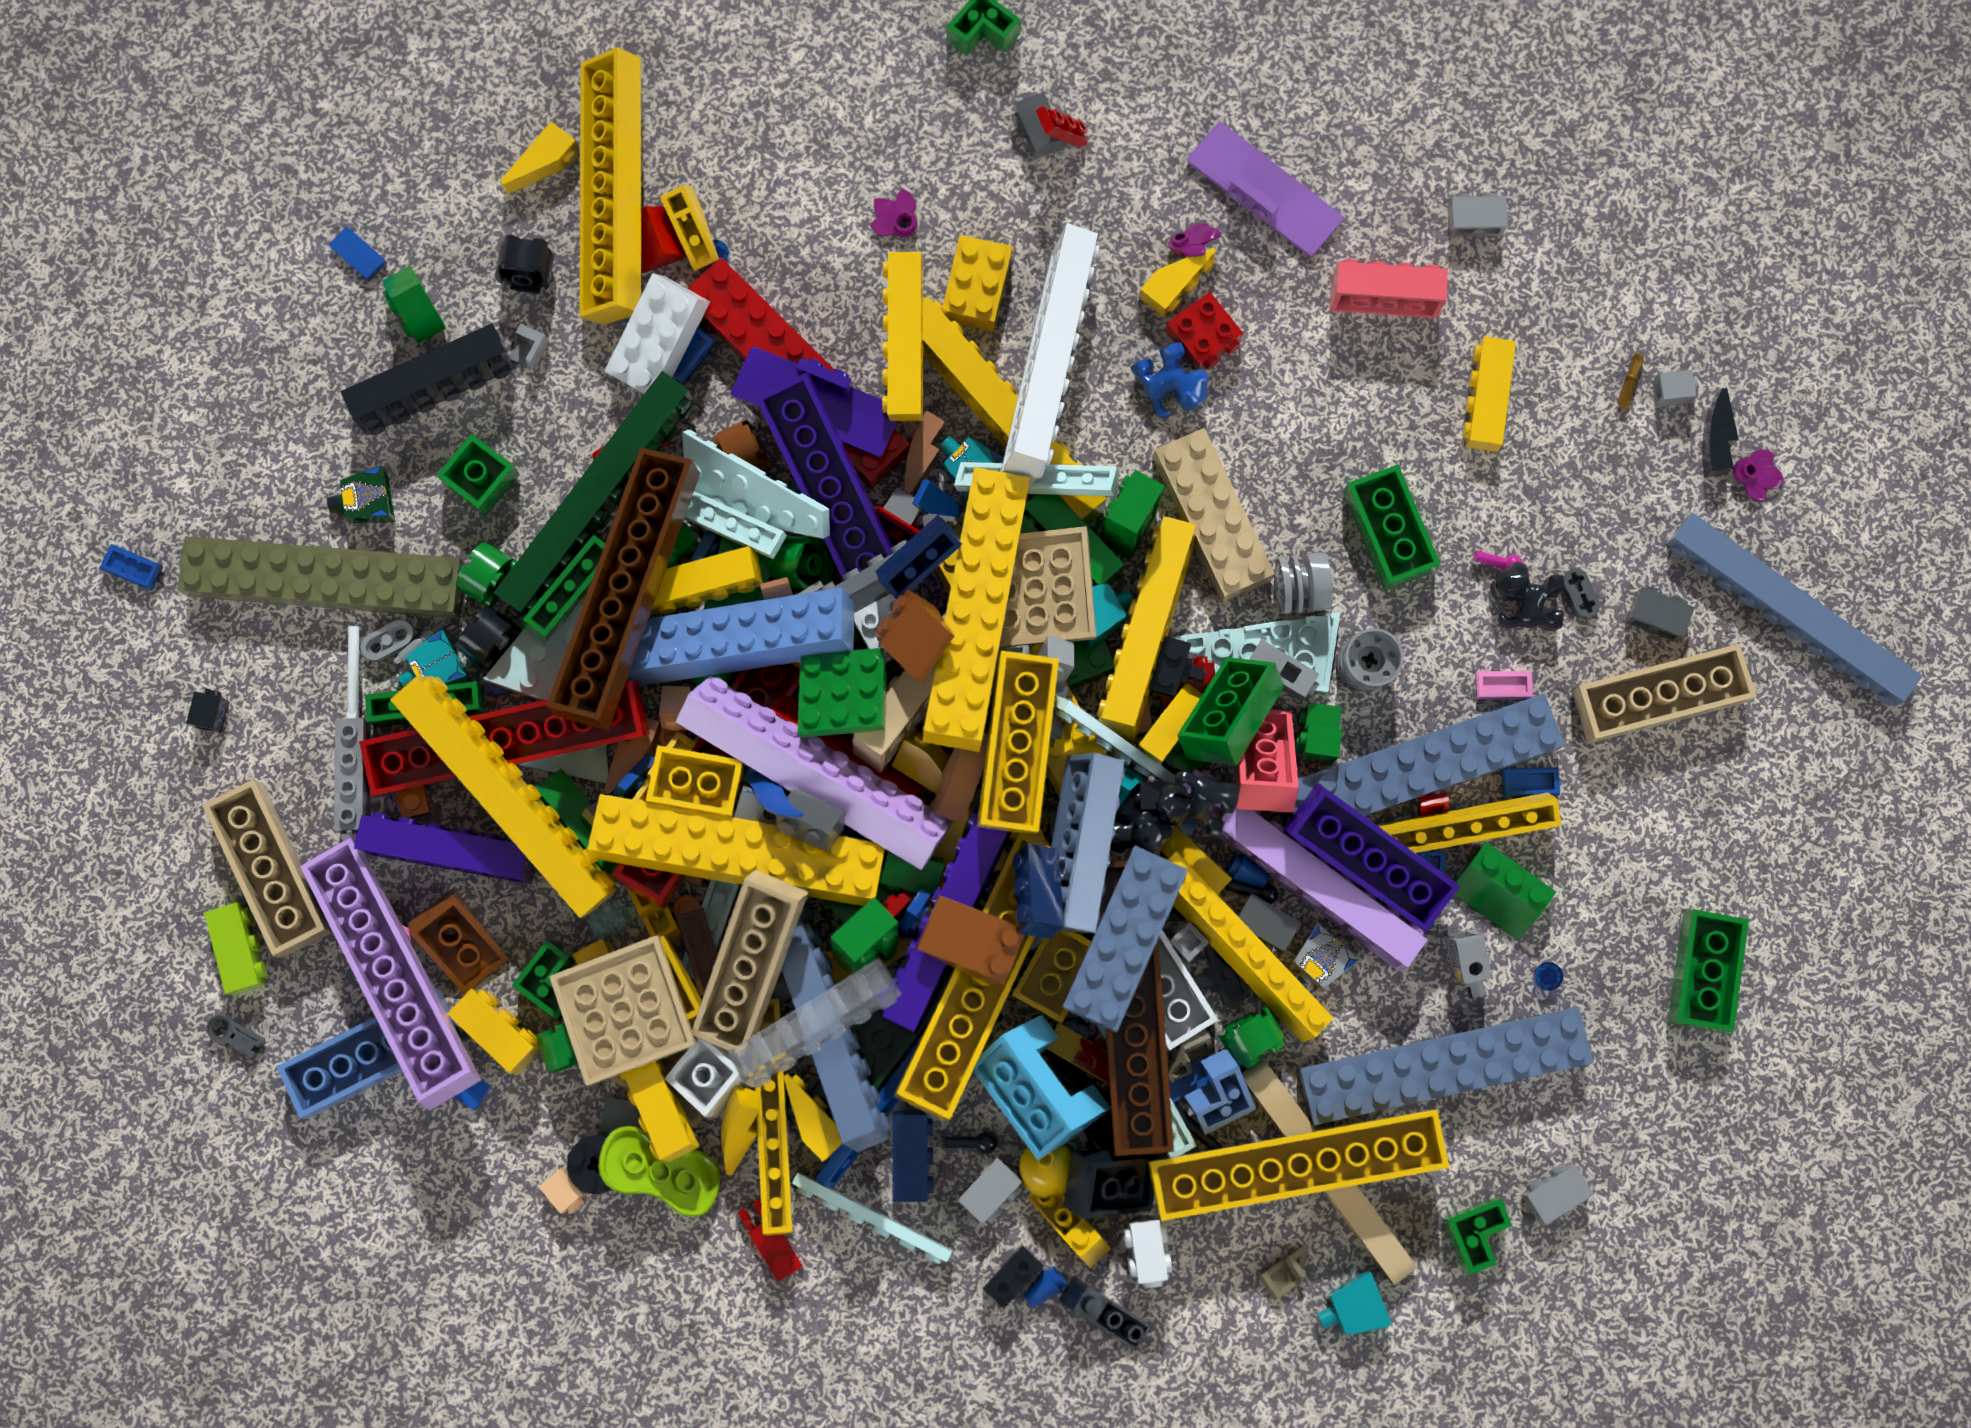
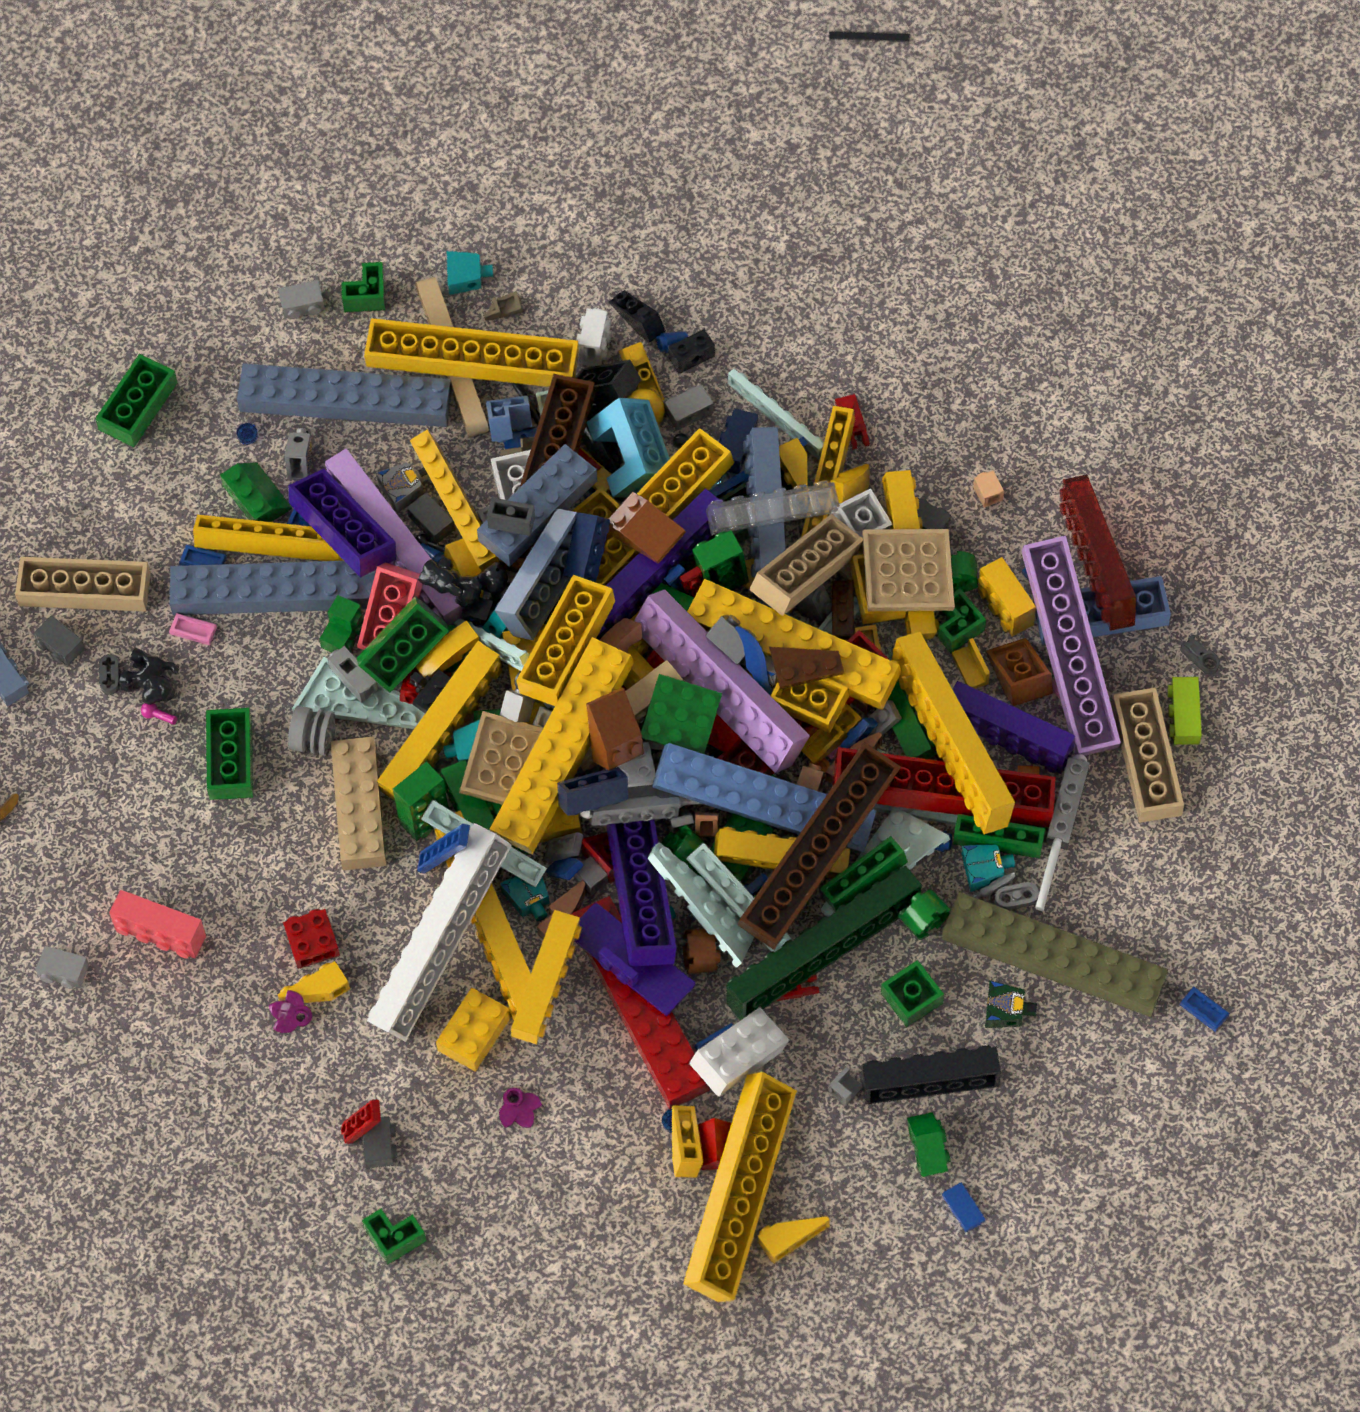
camera: 160 degrees left, 15 degrees down
(208, 711) = (1167, 882): black brick -> none
(385, 1118) = (1098, 553): none -> clear red brick
(488, 638) = (937, 866): black brick -> none
(520, 929) = (971, 665): none -> yellow panel
(524, 264) = (829, 1146): black brick -> none
(580, 1165) = (959, 496): black brick -> none
(684, 1184) = (932, 477): lime plate -> none
(707, 808) = (804, 666): none -> reddish brown wing
(1072, 442) = (443, 848): none -> blue tile
(1146, 884) = (511, 516): none -> dark grey brick
(1188, 387) = (340, 897): blue animal -> none
(1222, 978) = (476, 492): black hinge -> none
(1252, 1037) = (470, 446): green brick -> none
(1265, 189) = (218, 1040): medium lavender bracket -> none
(1383, 652) = (285, 664): light grey wheel -> none
(1433, 804) = (279, 559): red plate -> none
(1490, 394) = (113, 831): yellow brick -> none

